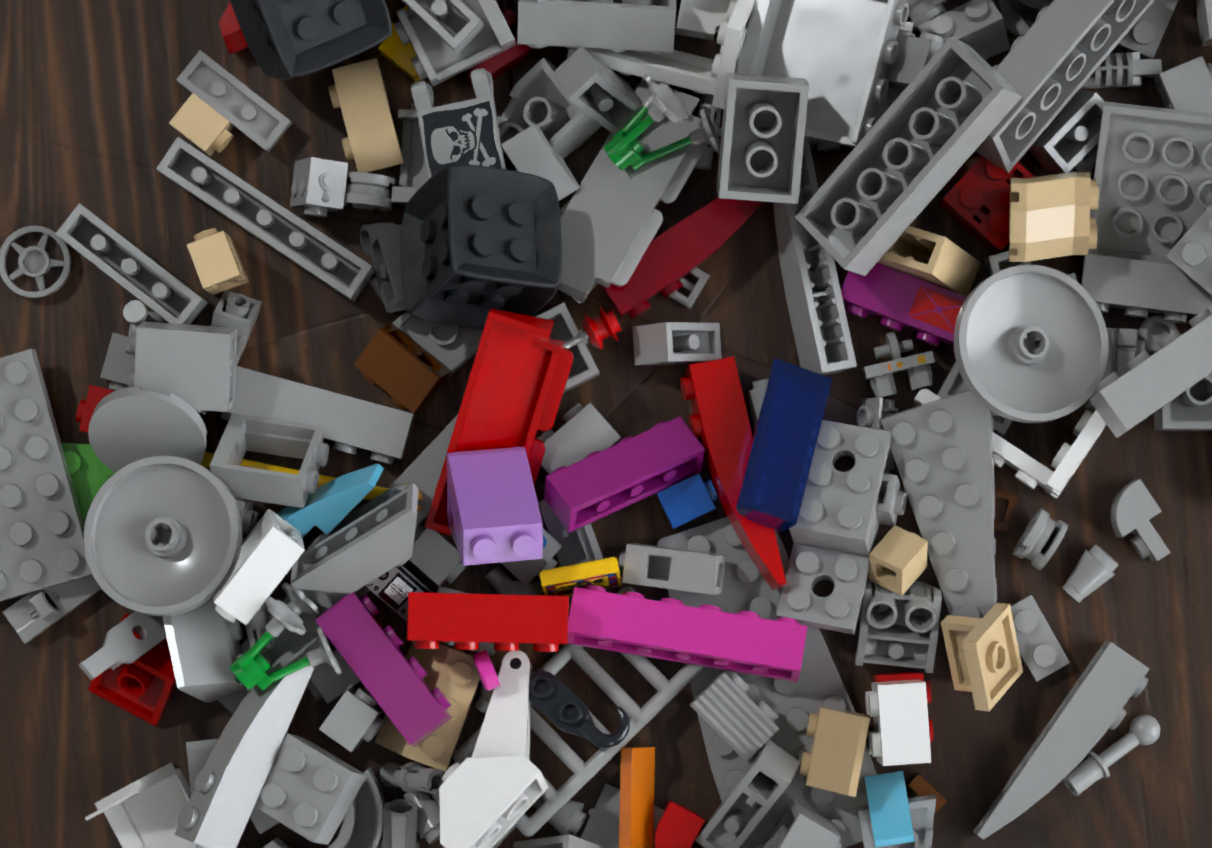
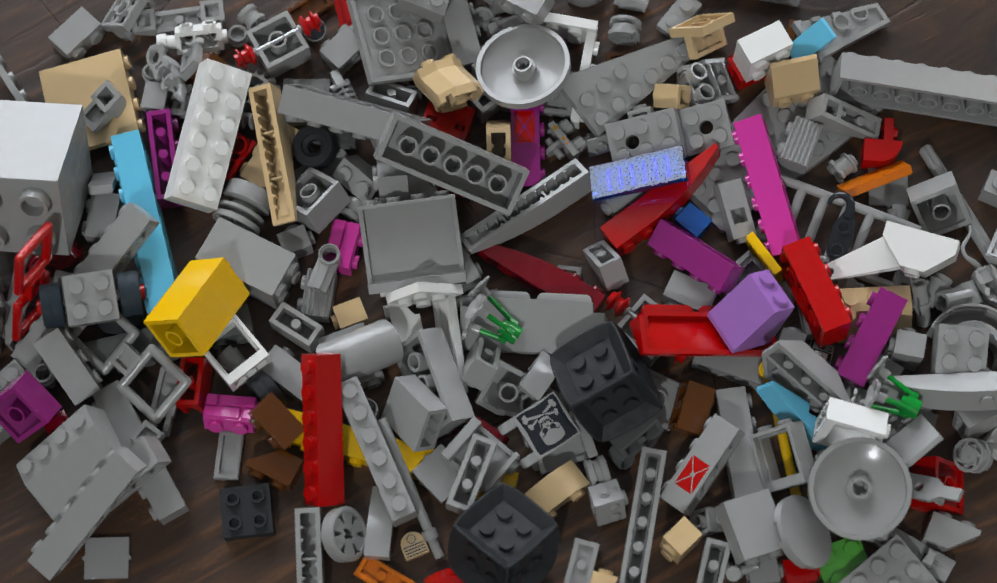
camera: 115 degrees left, 15 degrees down
(64, 648) = (946, 533): none -> light grey slope
(159, 741) = (973, 455): none -> light grey wheel
(311, 342) = (701, 465): none -> light grey brick
(486, 670) = (844, 280): dark pink tile -> none
(678, 770) = (842, 167): none -> light grey brick
(762, 138) = (473, 248): light grey brick -> none

